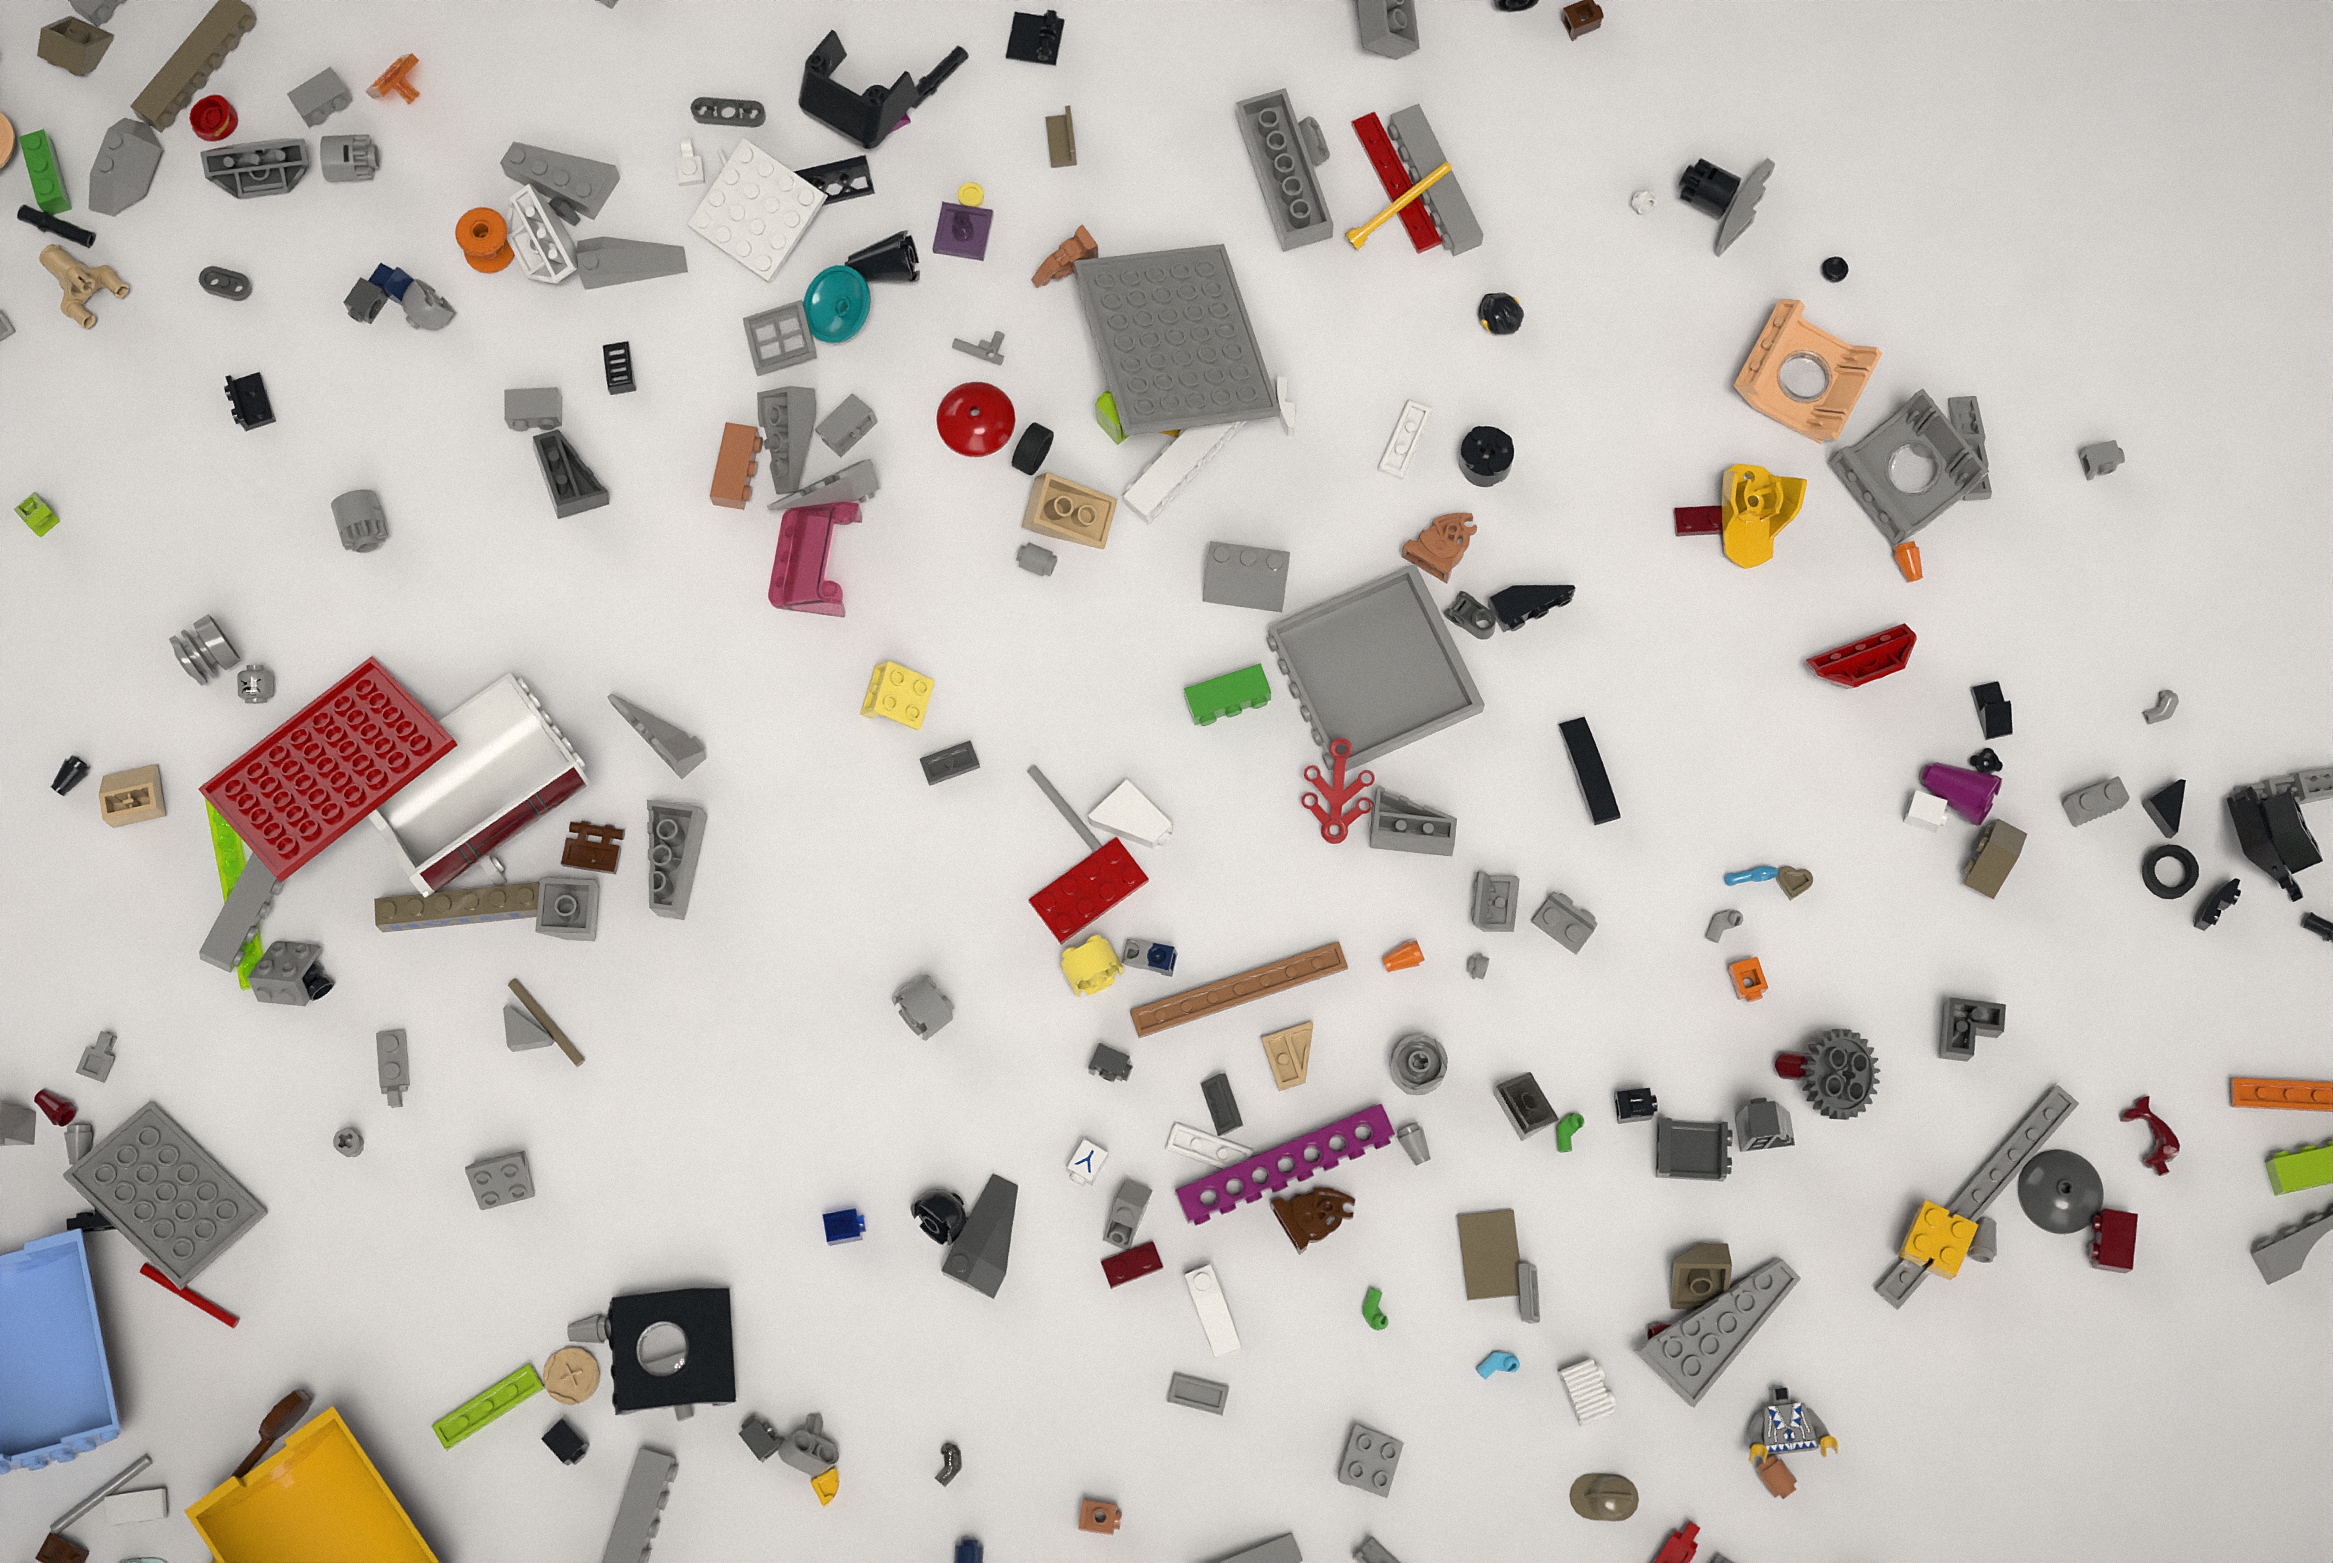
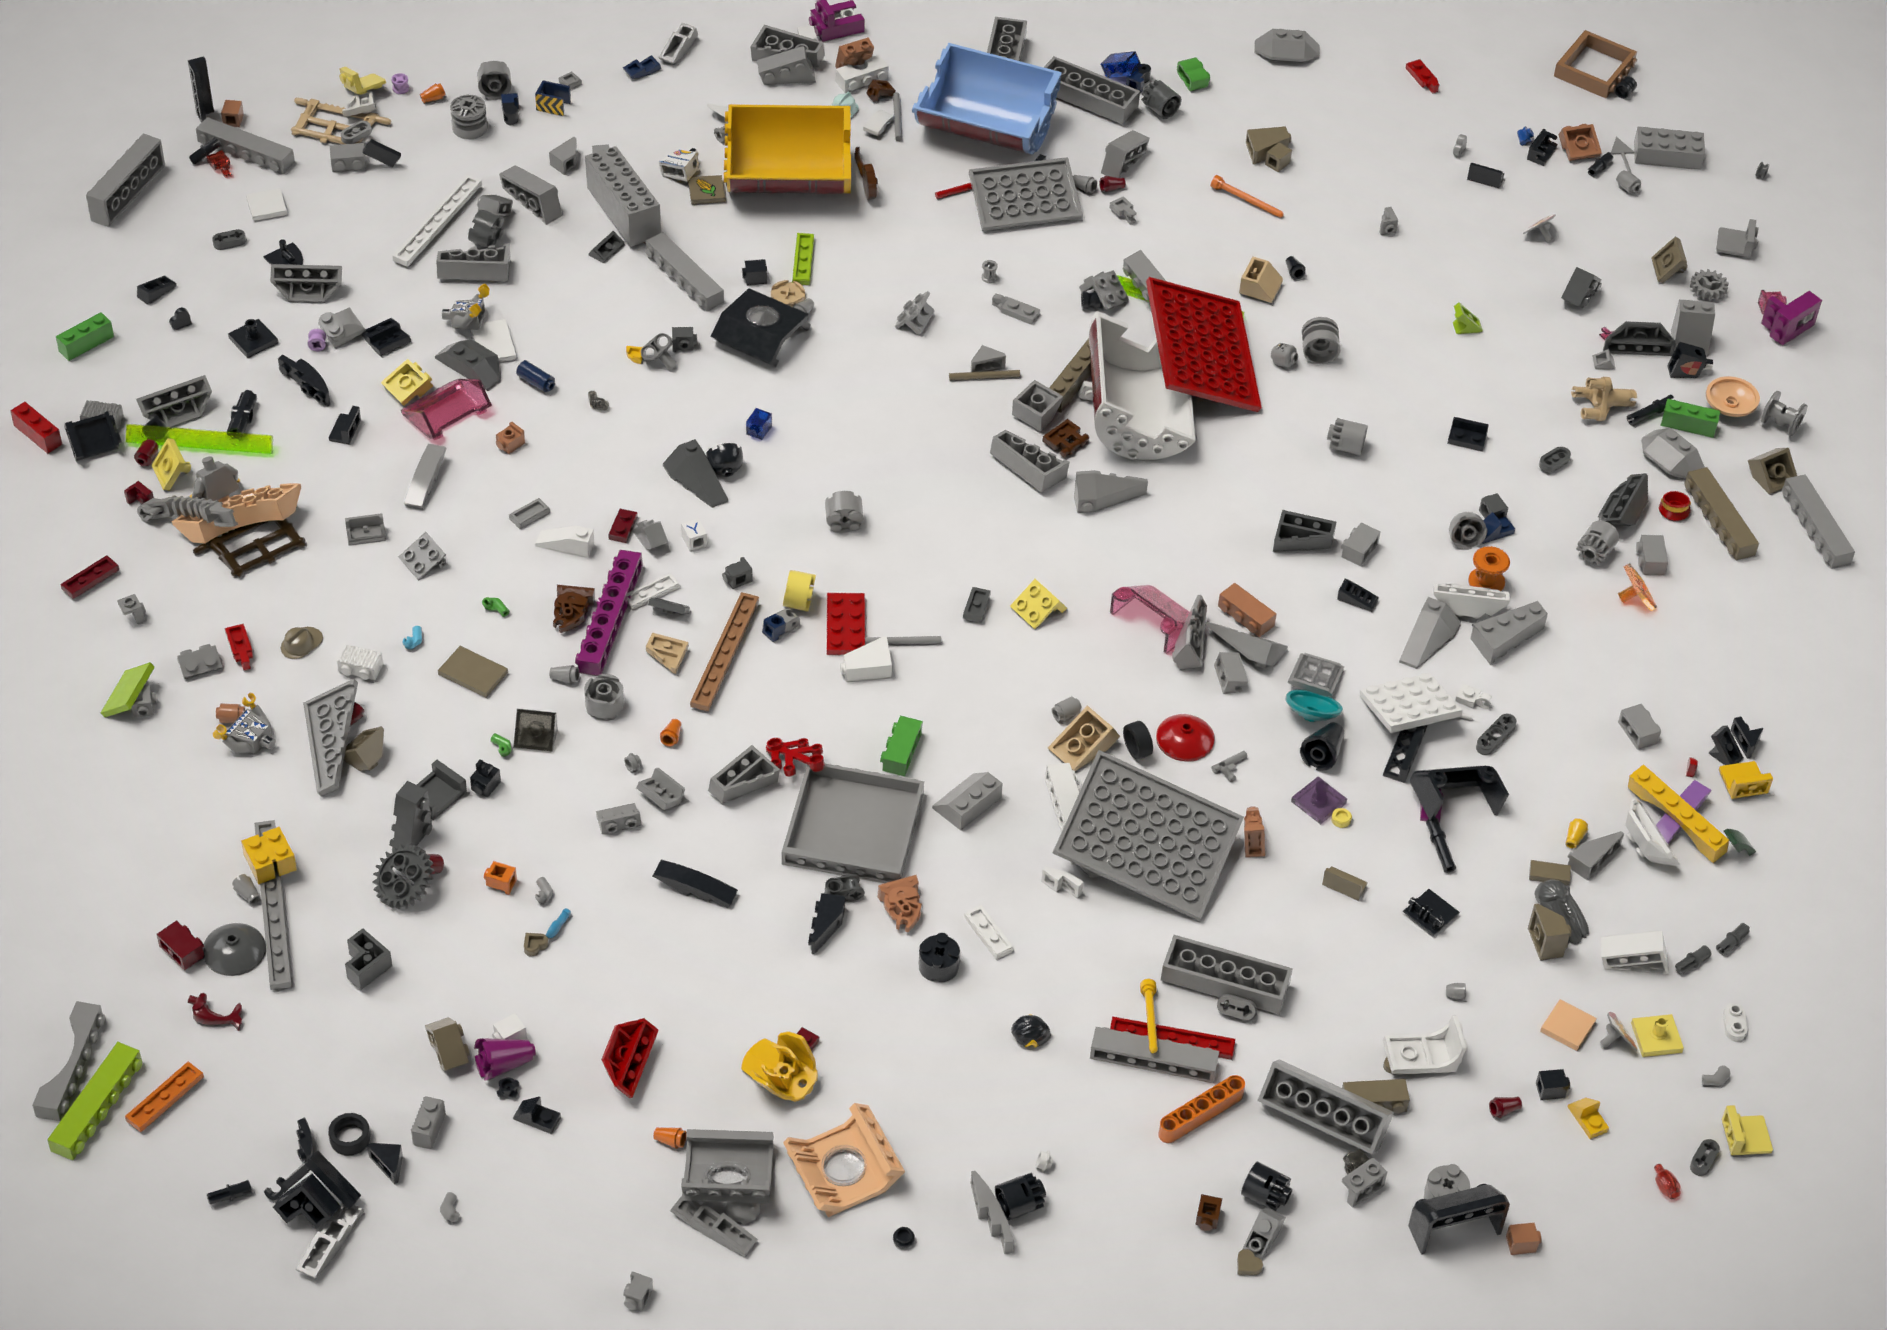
camera: 120 degrees right, 25 degrees down
(1458, 87) = (1196, 1116): none -> orange beam
(1529, 1293) = (435, 667): light grey tile -> none

